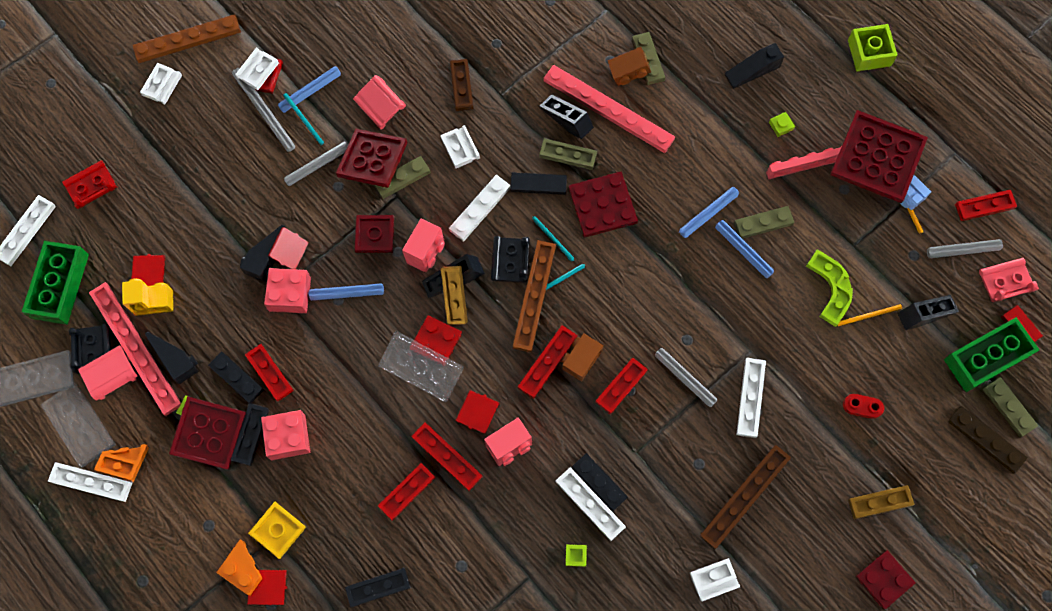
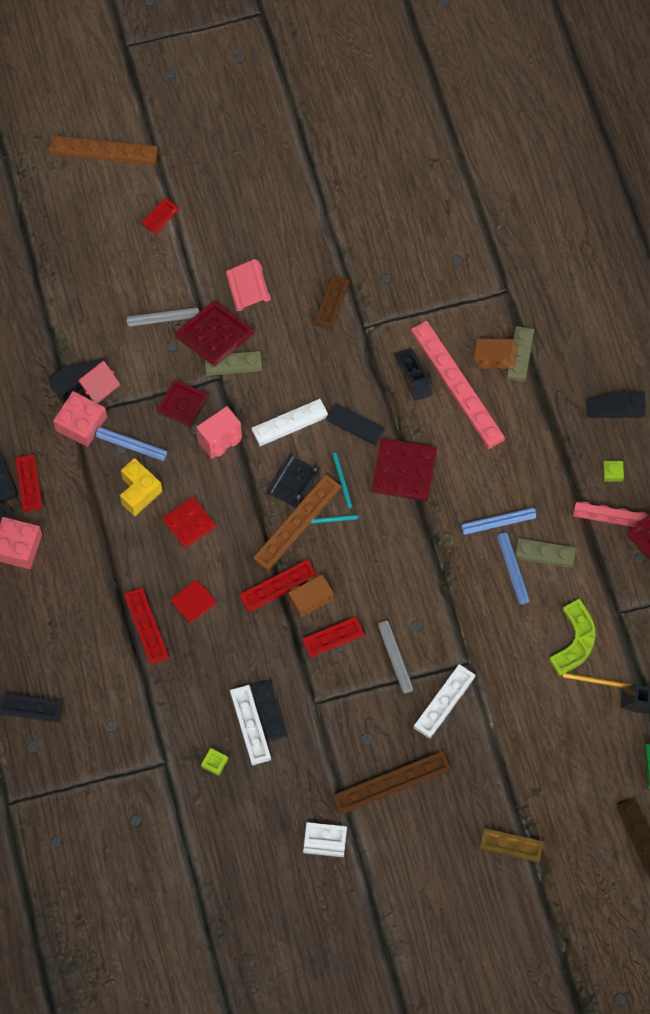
camera: 25 degrees right, 5 degrees down
(161, 83) = (59, 182): white plate -> none
(257, 68) = (151, 206): white plate -> none
(266, 114) = (139, 246): light grey axle -> none
(308, 125) = (171, 271): teal axle -> none
(310, 88) = (190, 245): medium blue axle -> none
(378, 329) = (142, 488): none -> yellow brick
(406, 491) = (96, 639): red plate -> none
(421, 366) = (163, 538): clear tile -> none
(454, 295) = (223, 488): pearl gold plate -> none
(460, 147) = (300, 358): white plate -> none
(470, 271) = (236, 472): black slope -> none
(509, 442) = (205, 637): coral brick -> none
(568, 154) = (396, 409): olive plate -> none
(864, 406) = (544, 756): red plate -> none
(885, 579) = (478, 913): dark red plate -> none

